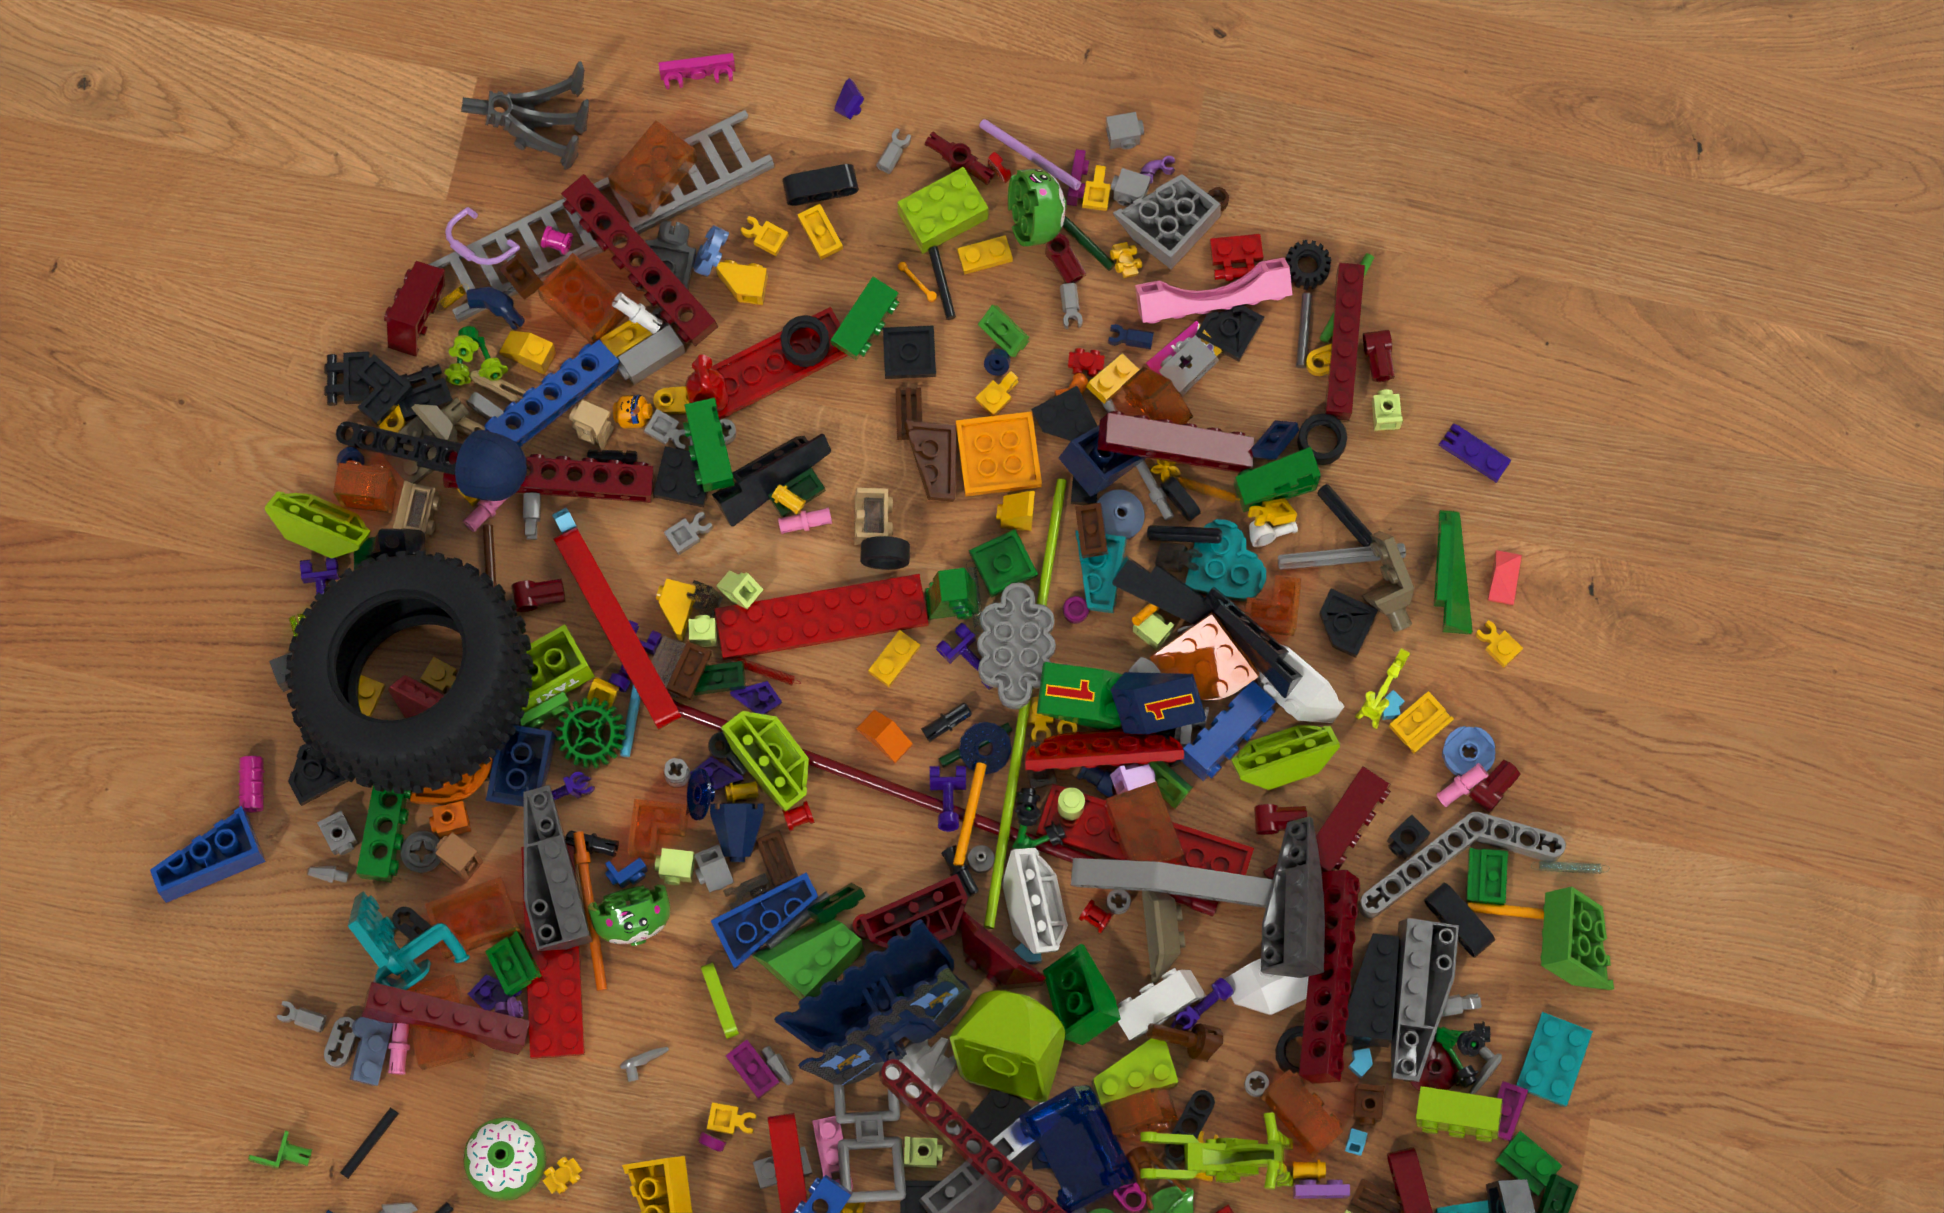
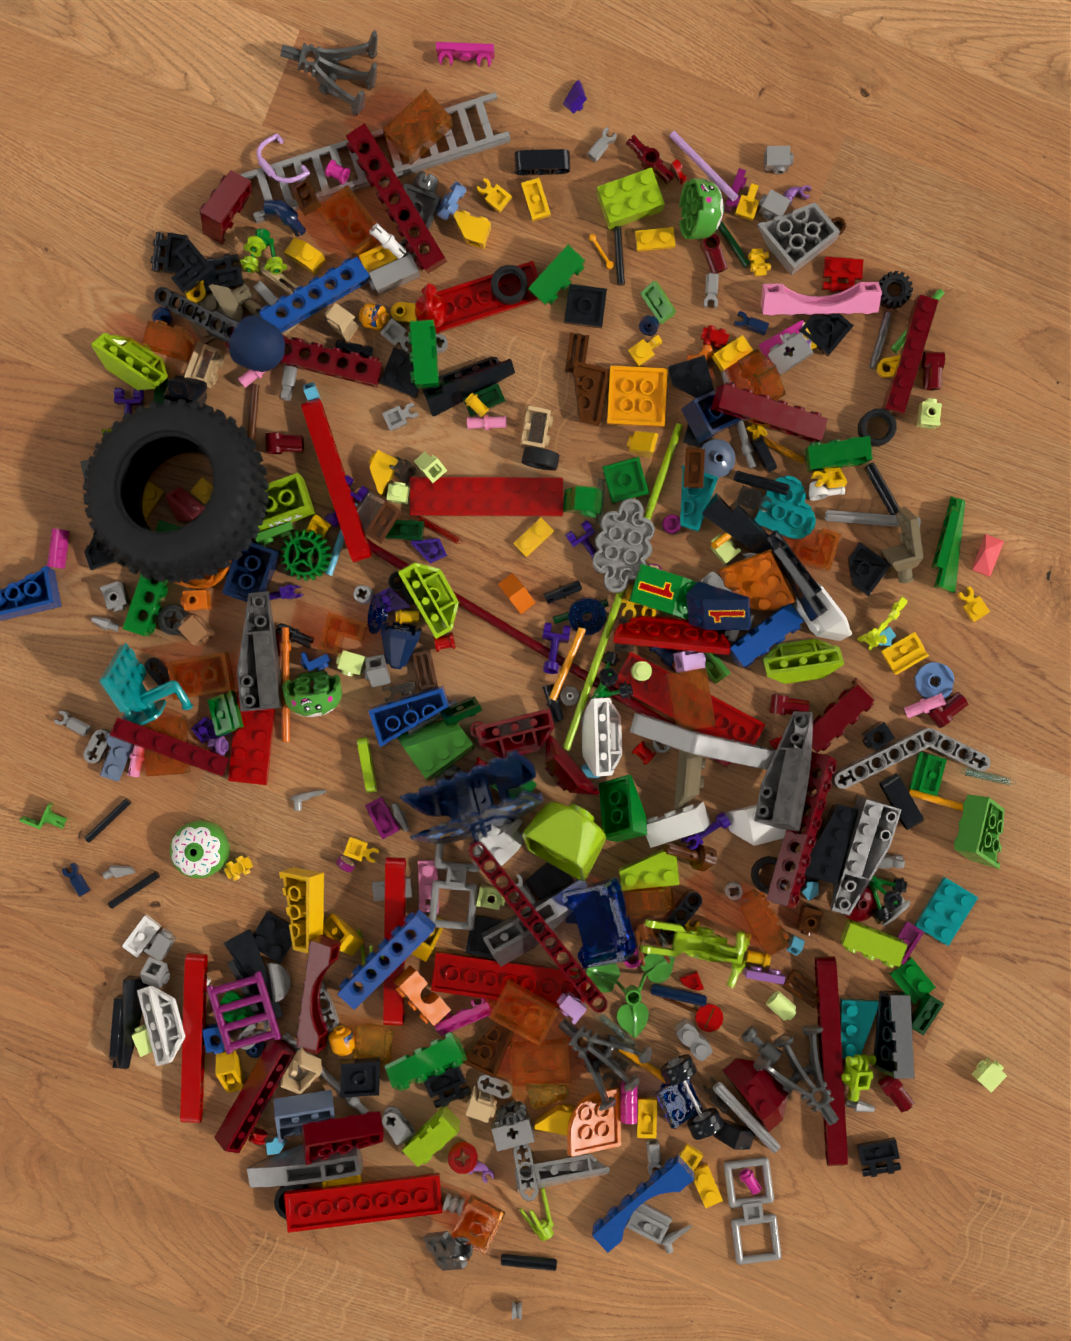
camera: 10 degrees right, 15 degrees up
(452, 297) = (254, 203): yellow piece -> none
(1275, 439) = (843, 422): dark blue plate -> none
(1475, 453) = (987, 457): dark purple hinge -> none

